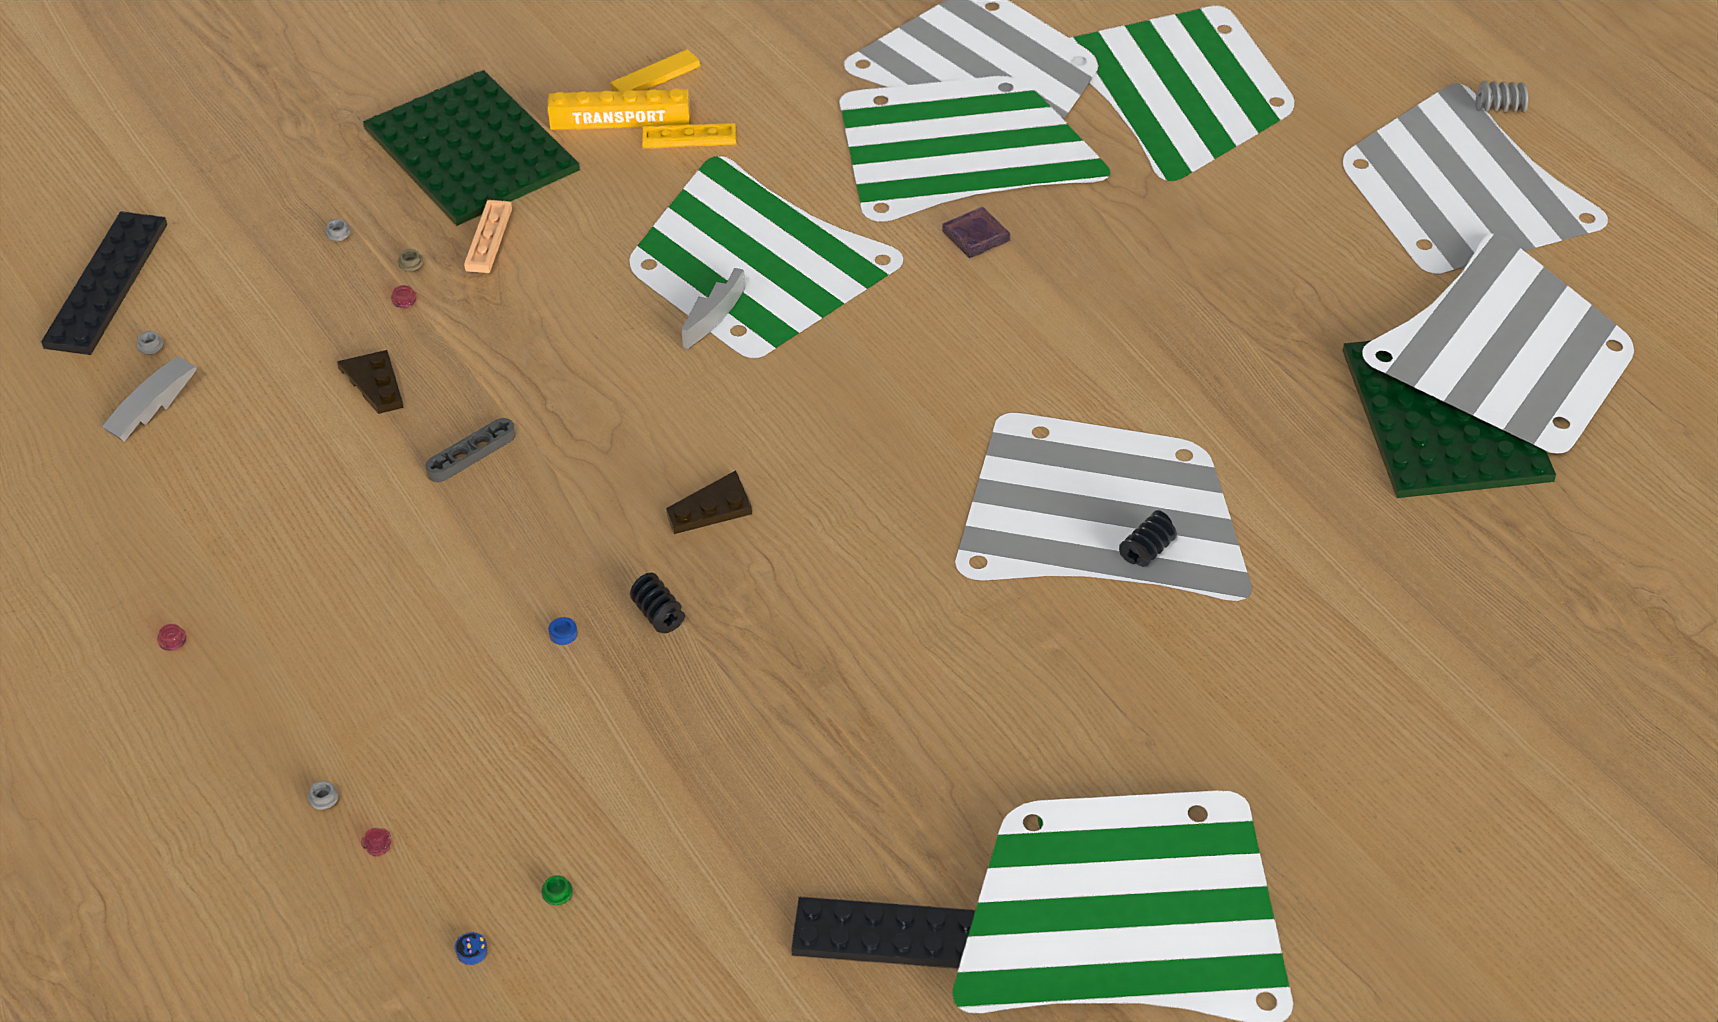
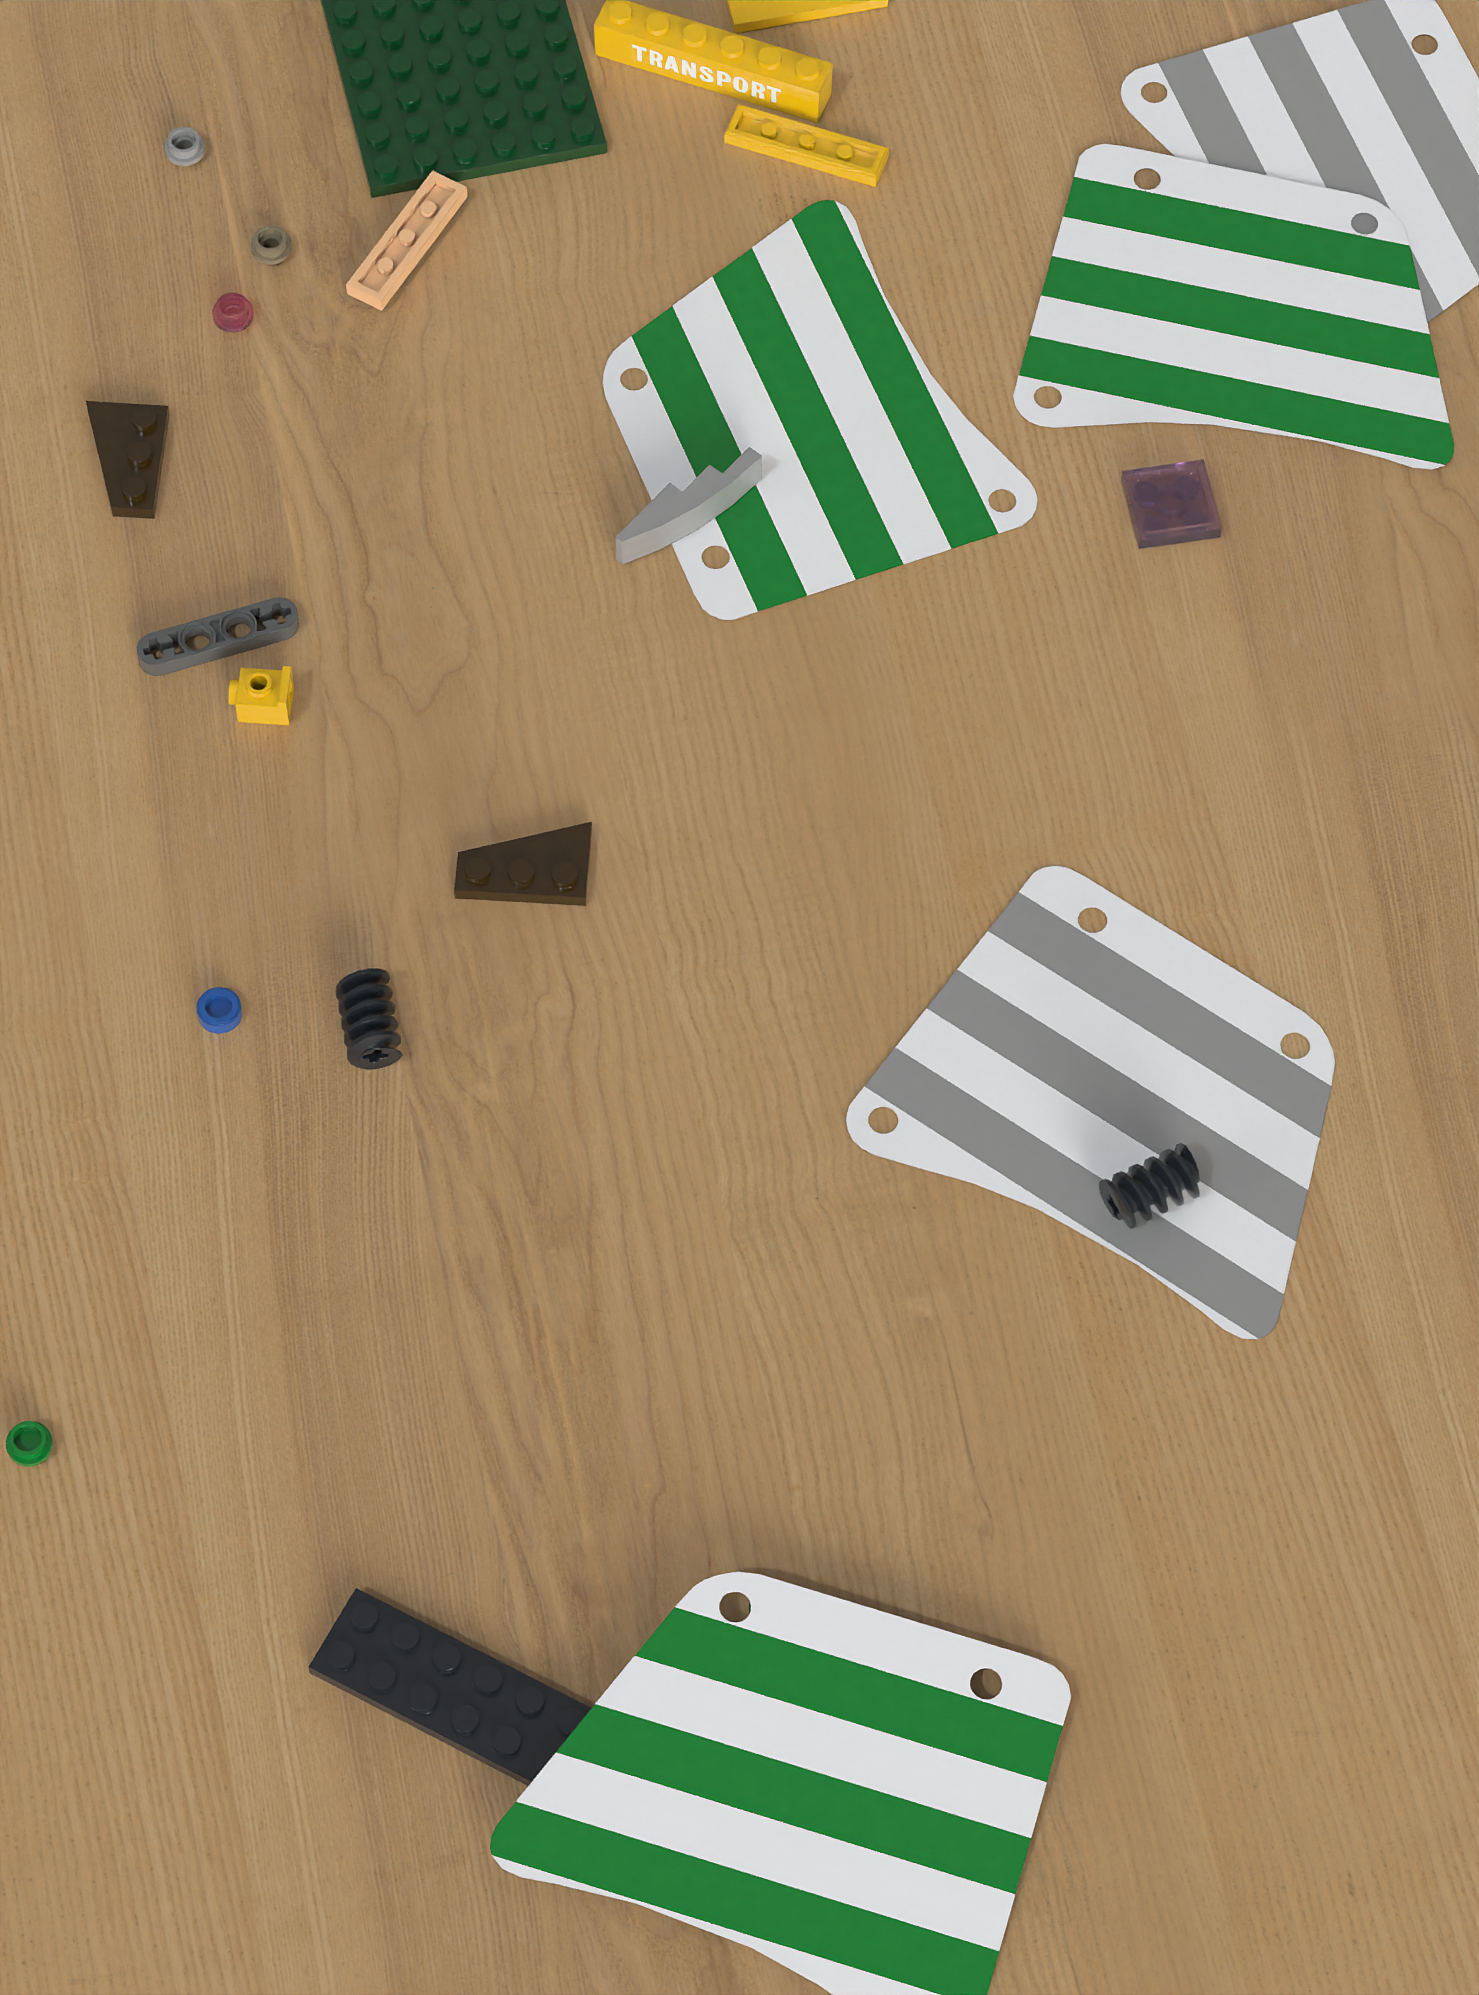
camera: 20 degrees right, 15 degrees up
(512, 468) = (263, 695): none -> yellow brick

